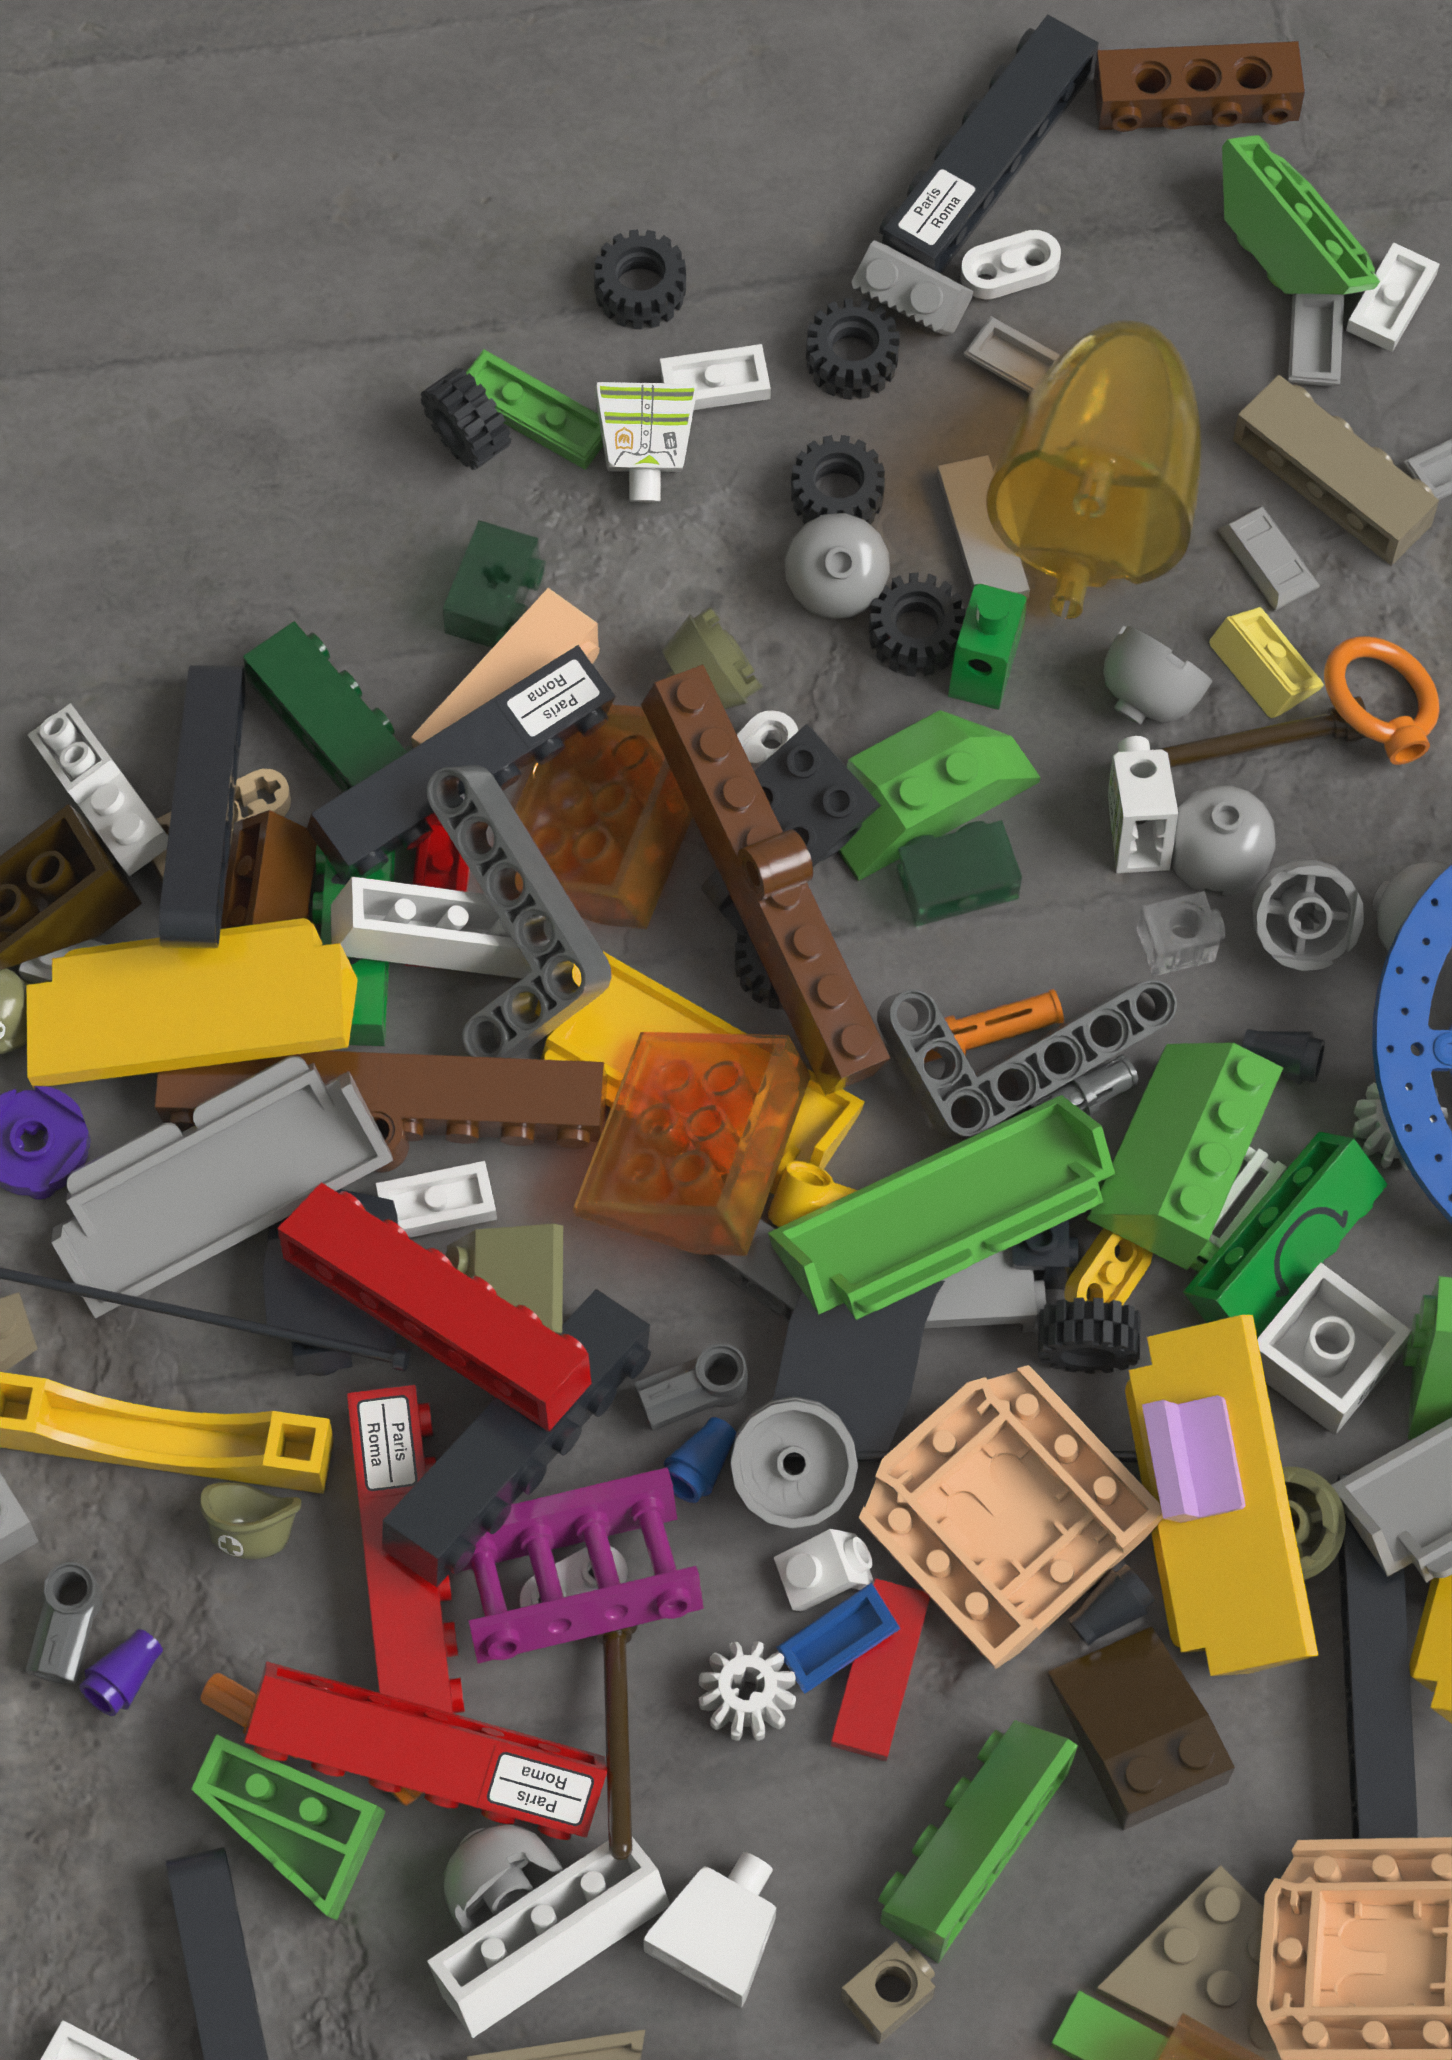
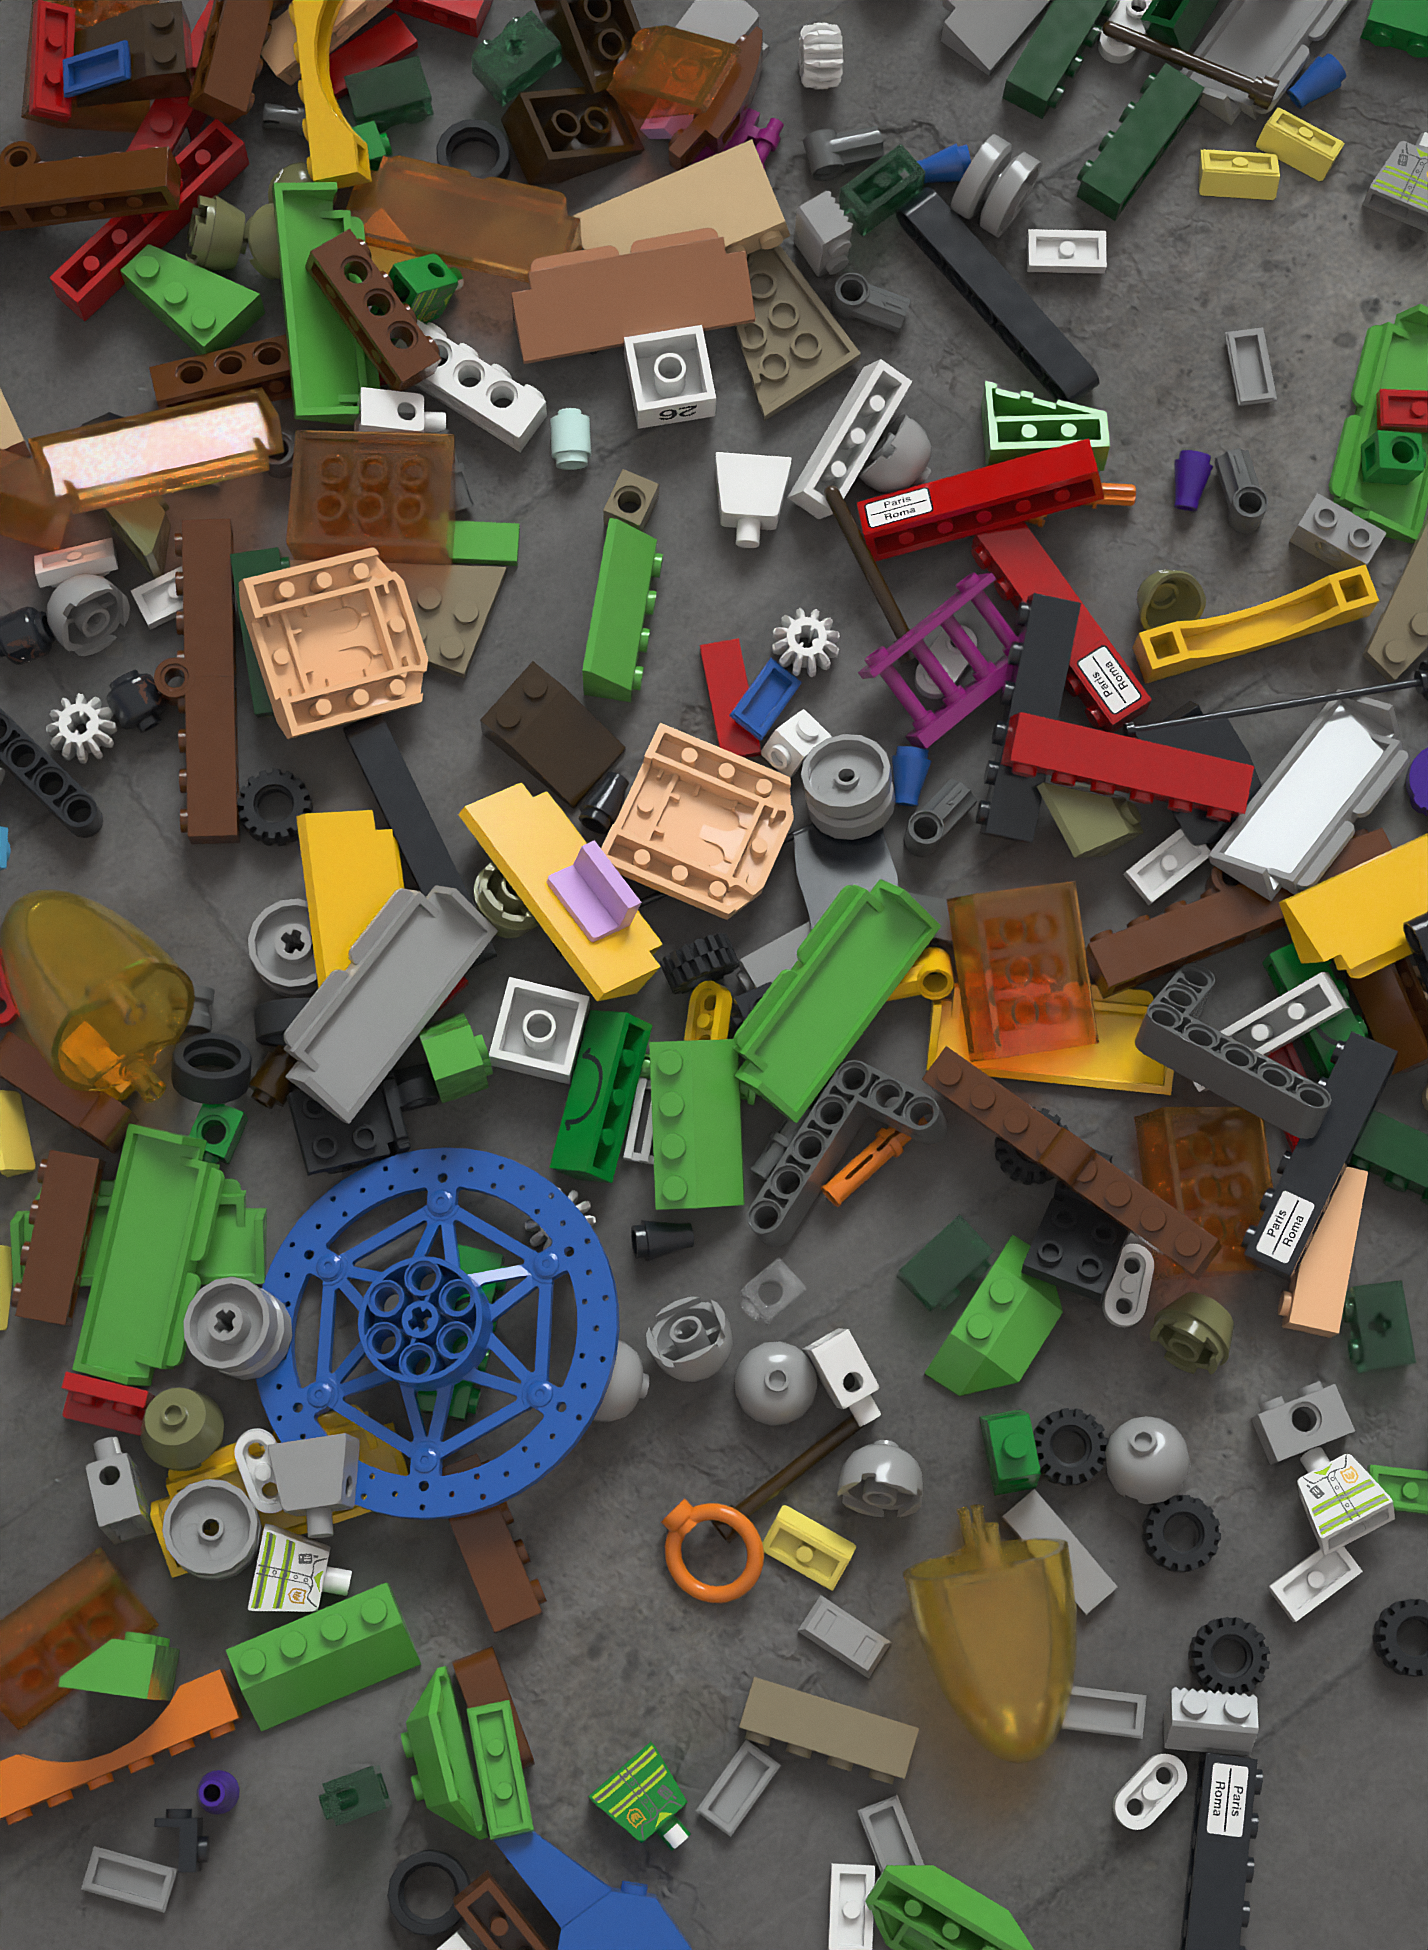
camera: 150 degrees right, 10 degrees up
(619, 510) = (1327, 1422): none -> light grey brick

